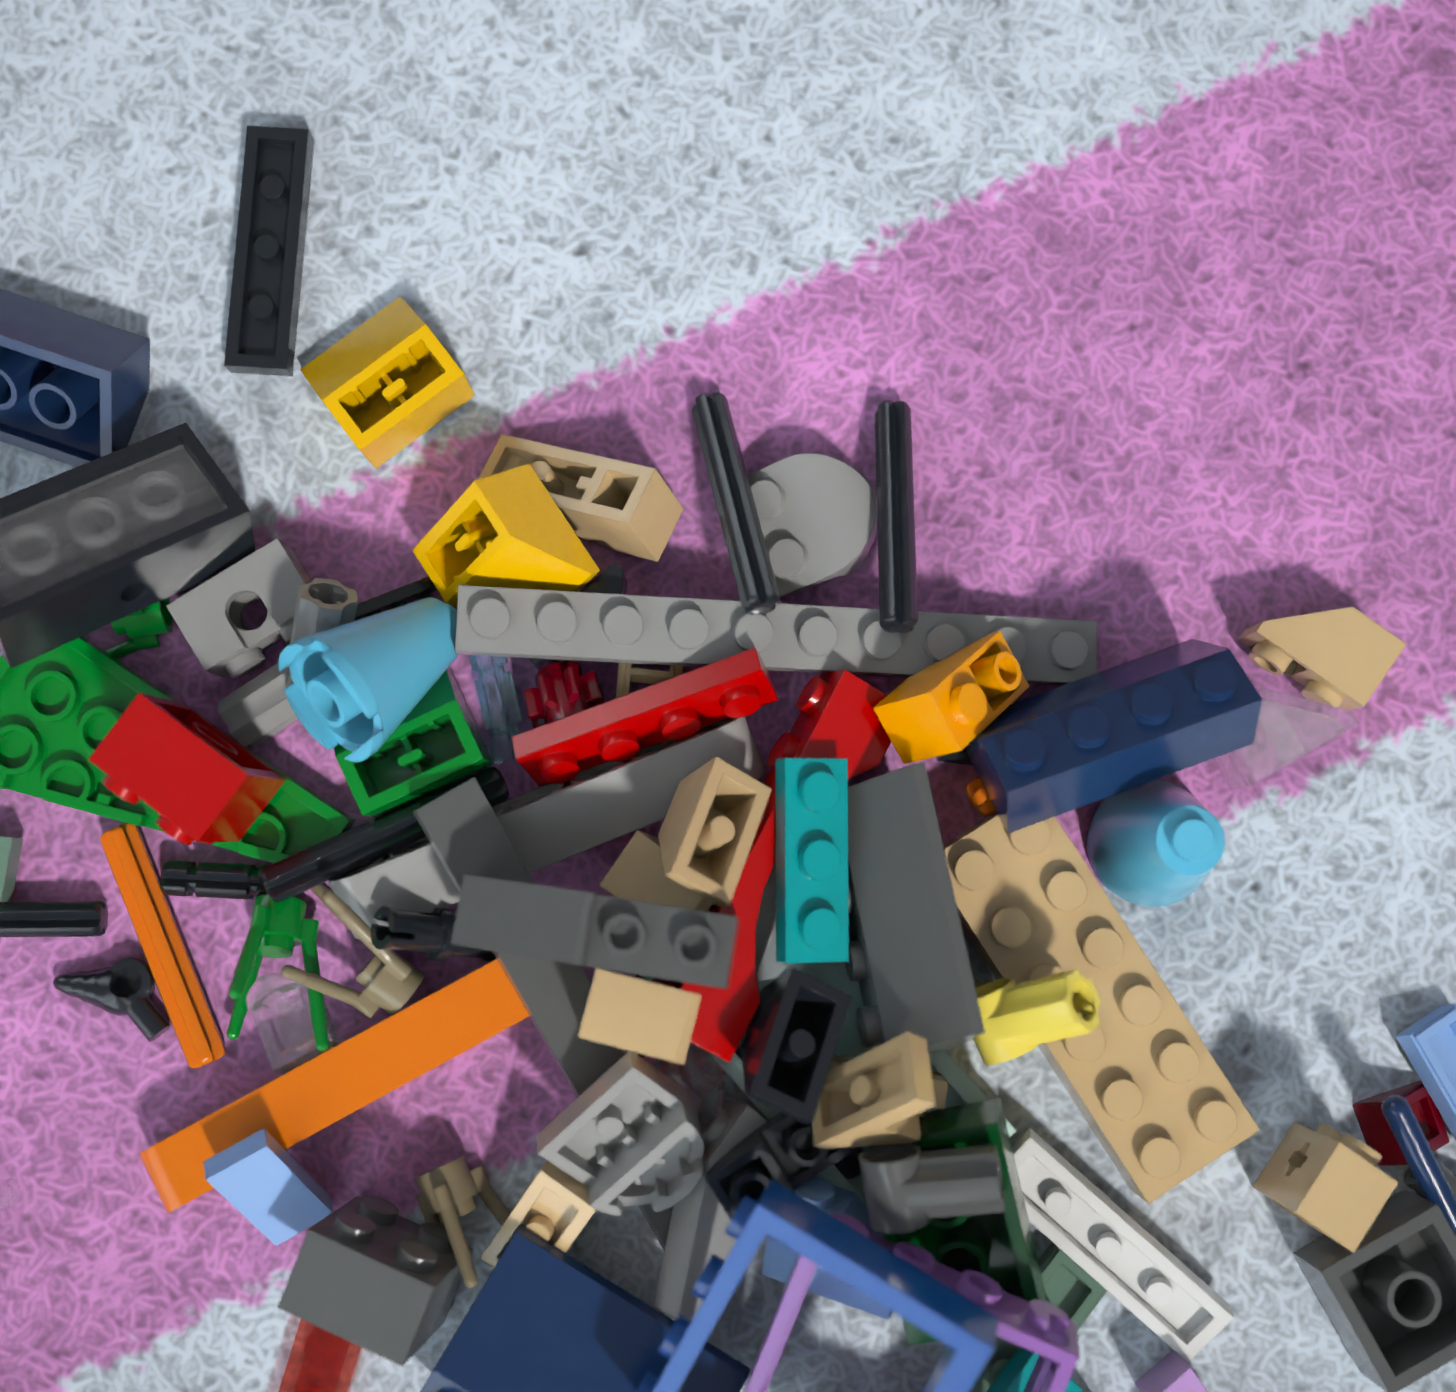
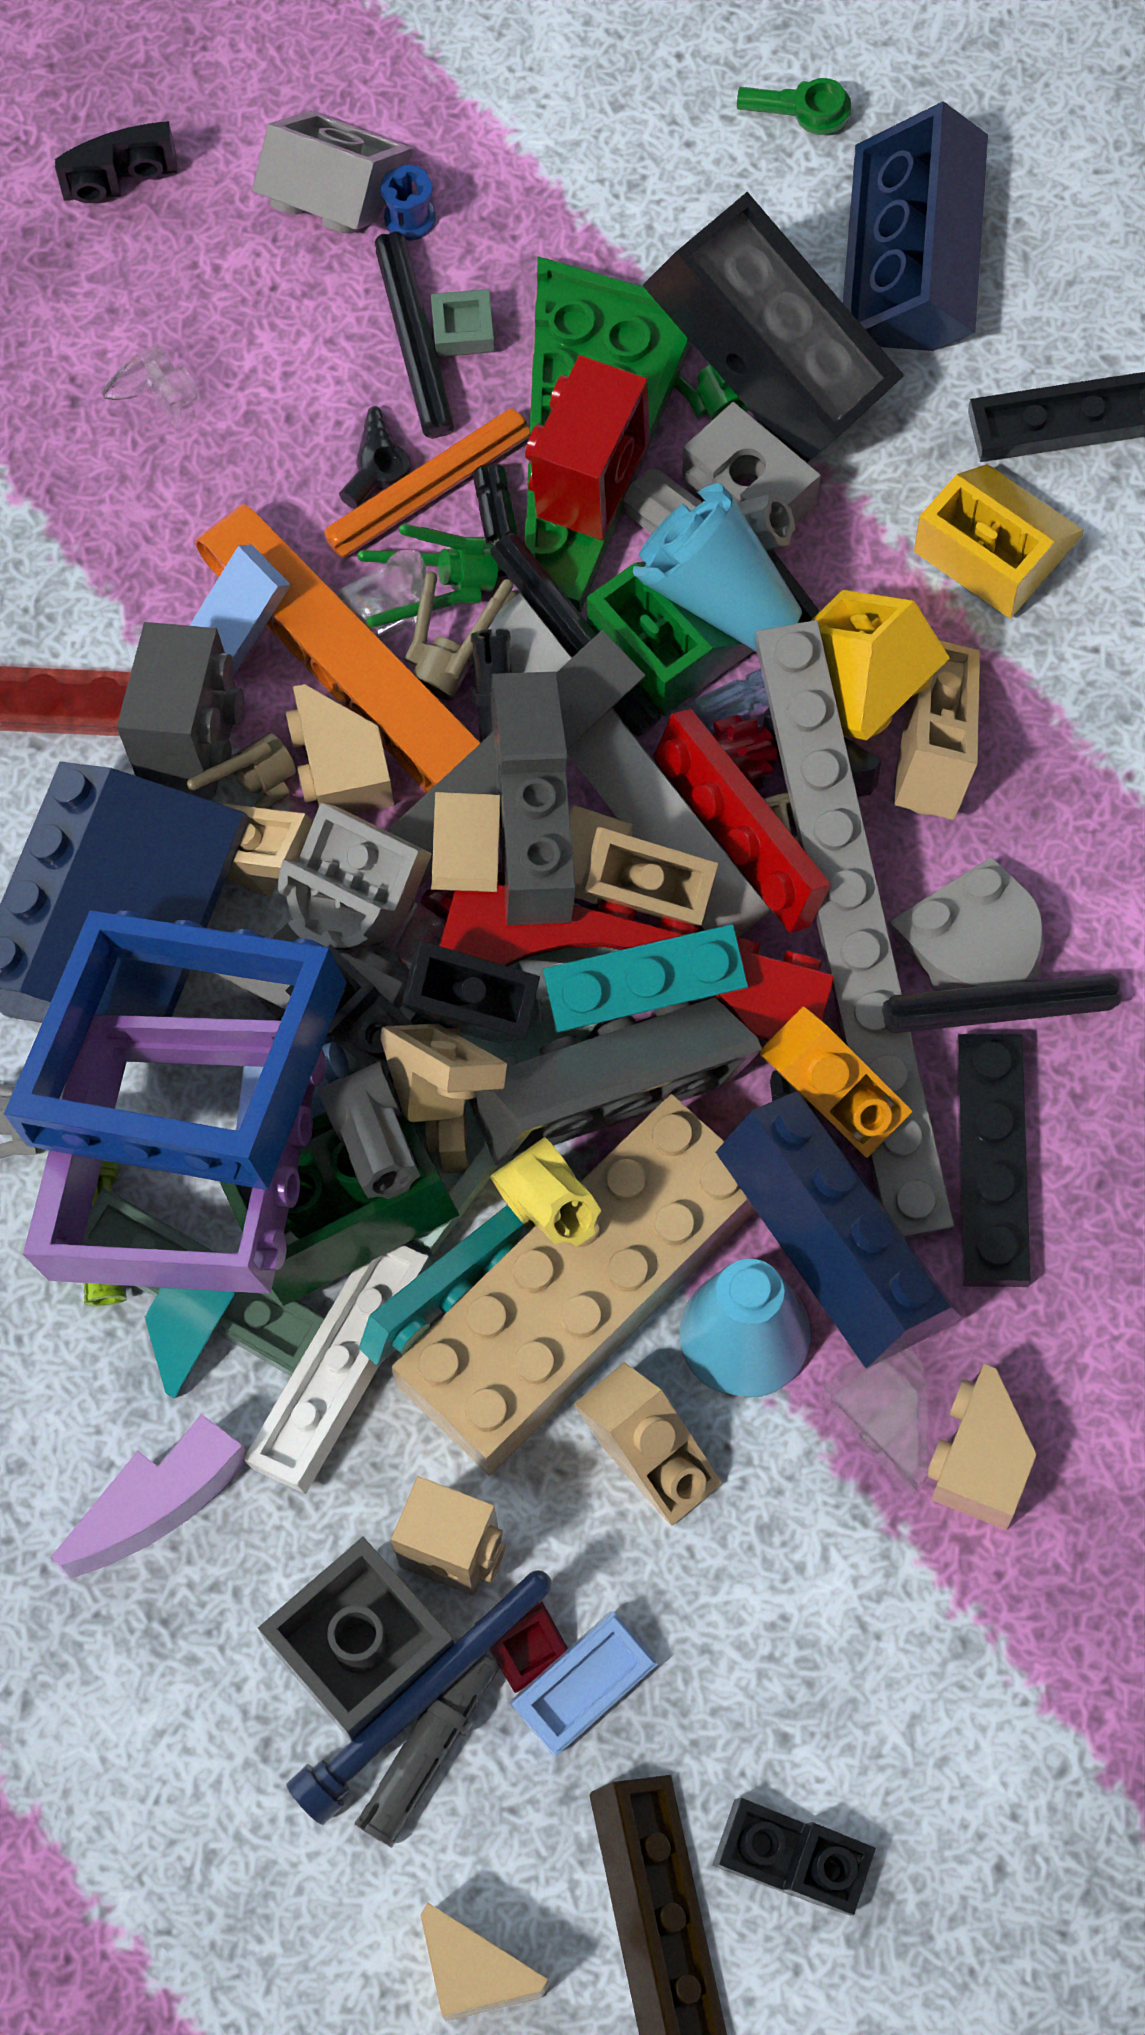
camera: 80 degrees right, 15 degrees down
(463, 1106) = (343, 754): none -> tan slope
(735, 504) = (969, 853): black axle -> none
(1036, 567) = (992, 1161): none -> black plate
(1075, 1133) = (437, 1289): none -> teal plate
(1249, 965) = (648, 1442): none -> tan slope

